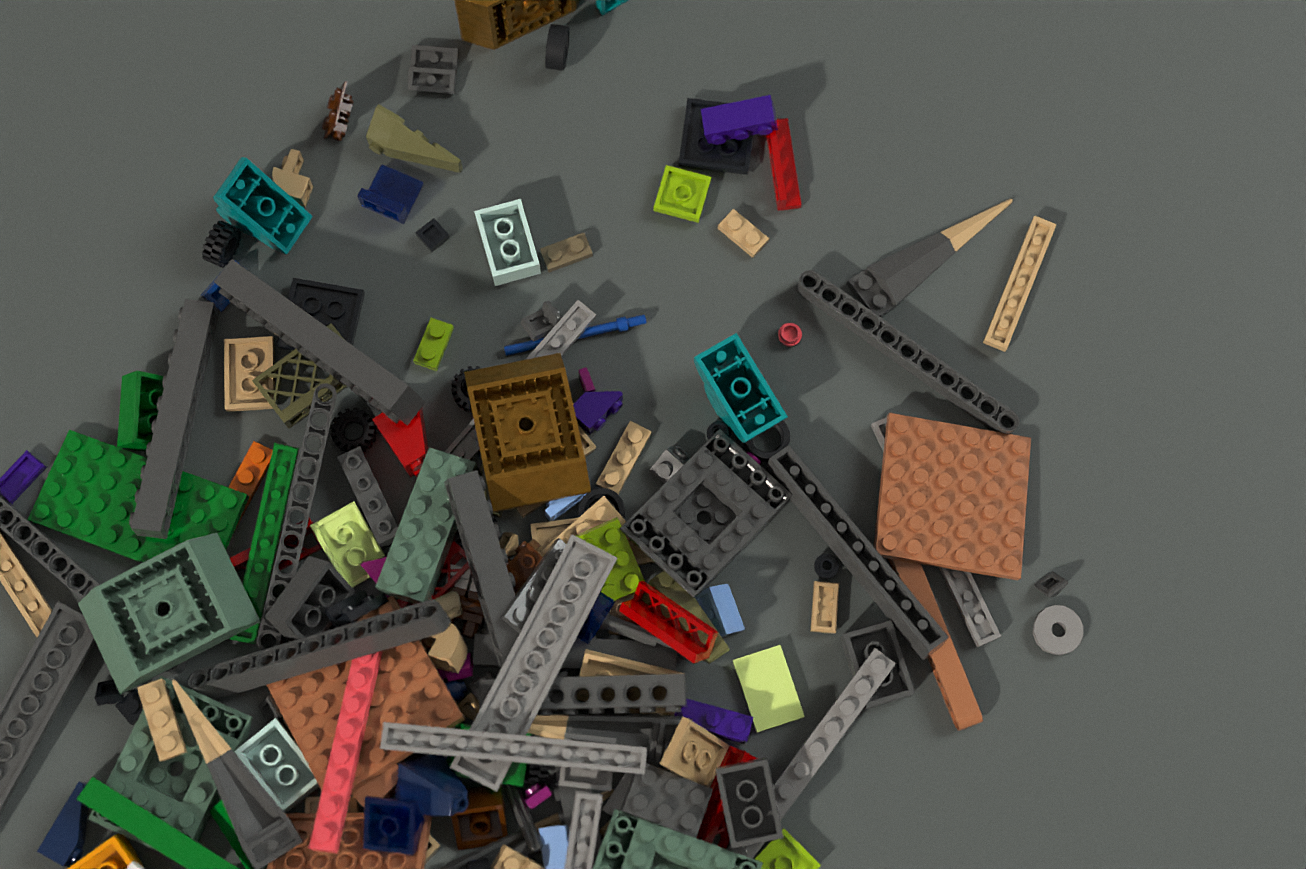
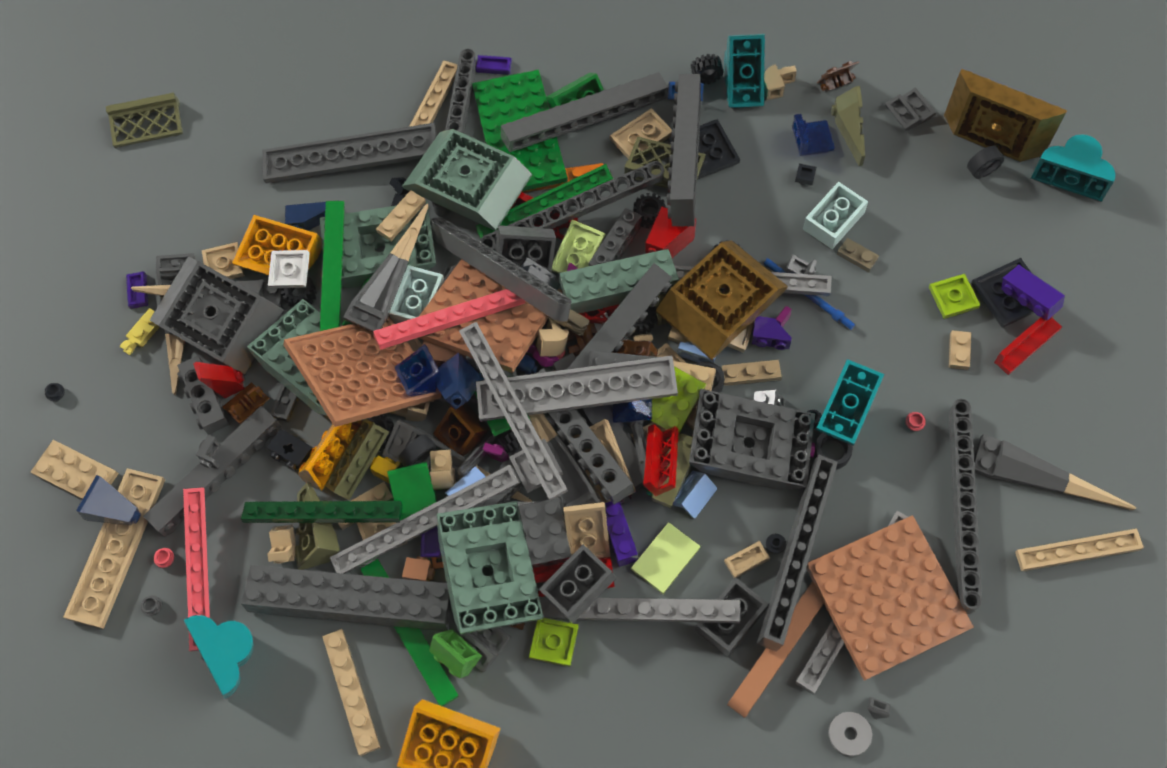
camera: 65 degrees right, 10 degrees down
(433, 344) = (738, 219): lime plate -> none

